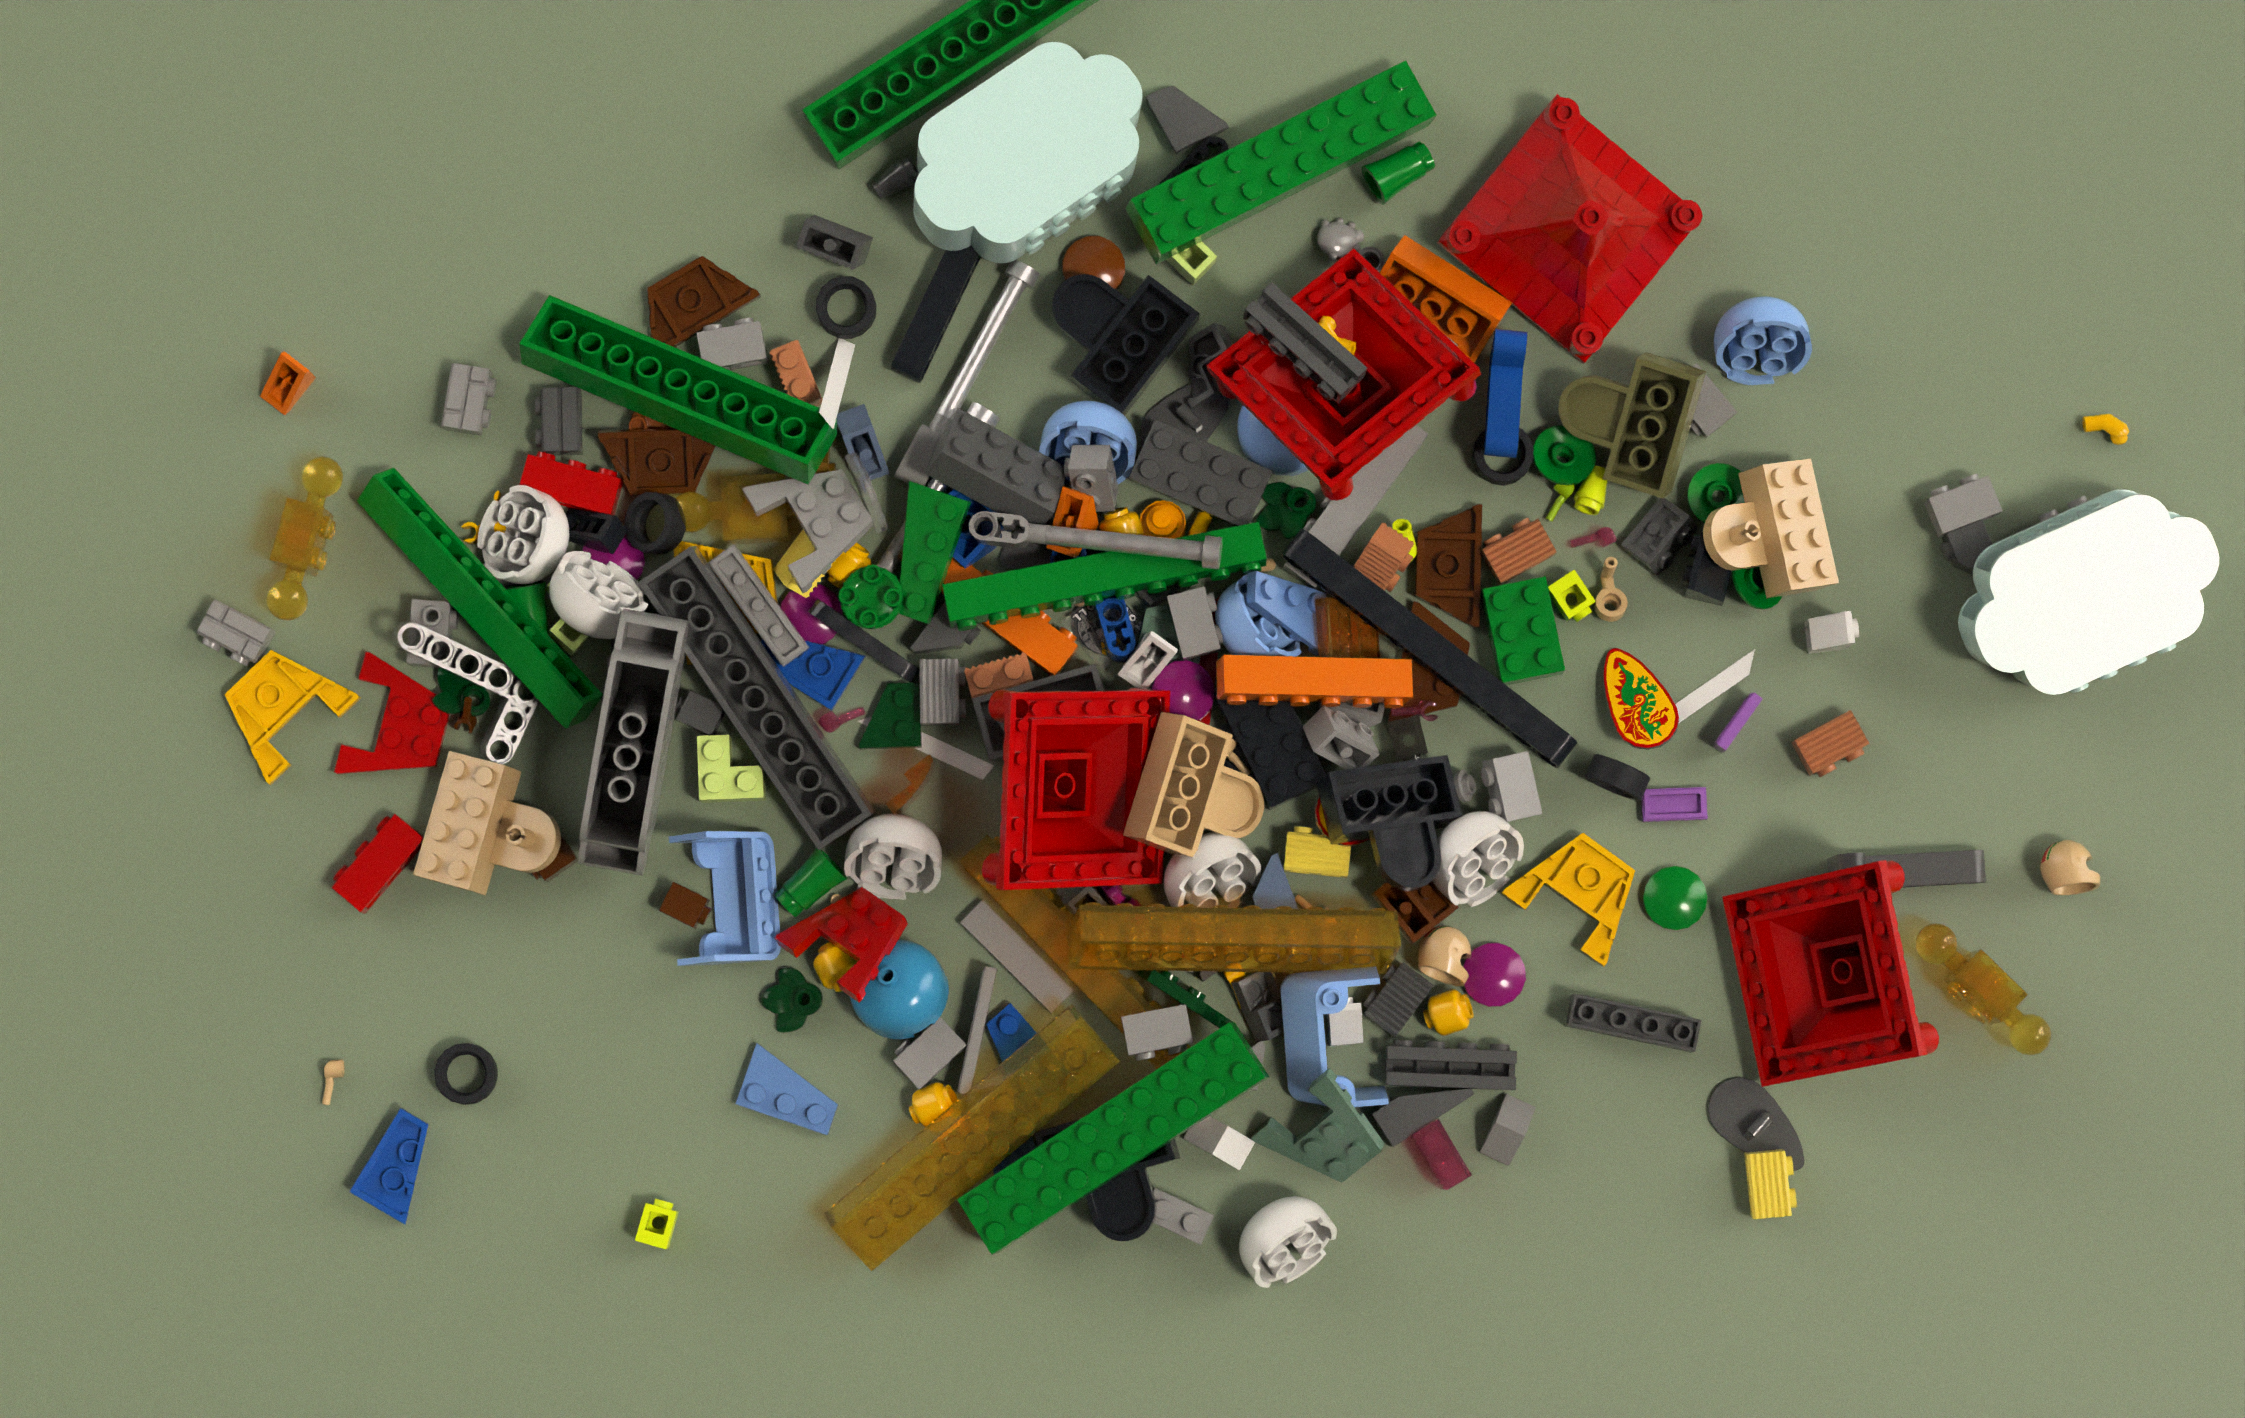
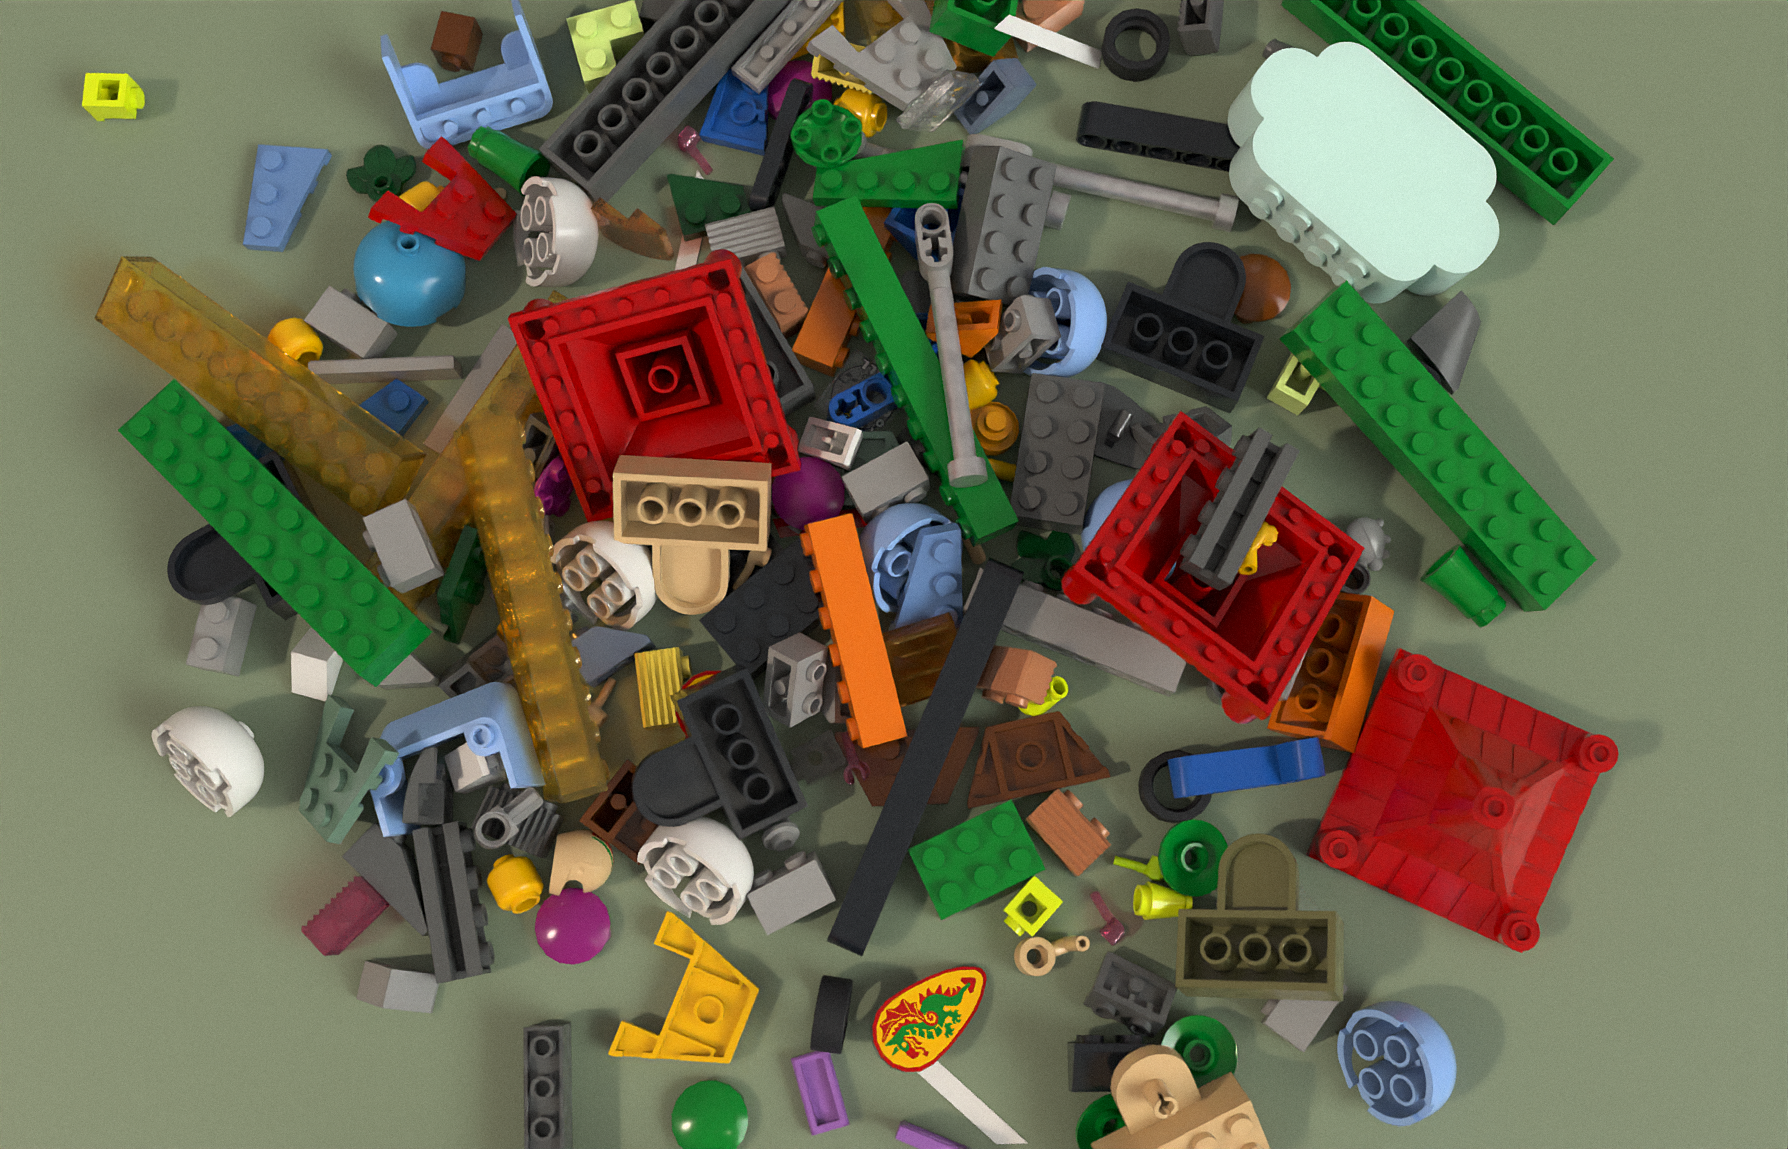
camera: 80 degrees right, 5 degrees down
(1362, 1063) = (428, 792): none -> dark grey slope
(1397, 1000) = (509, 816): none -> light grey axle

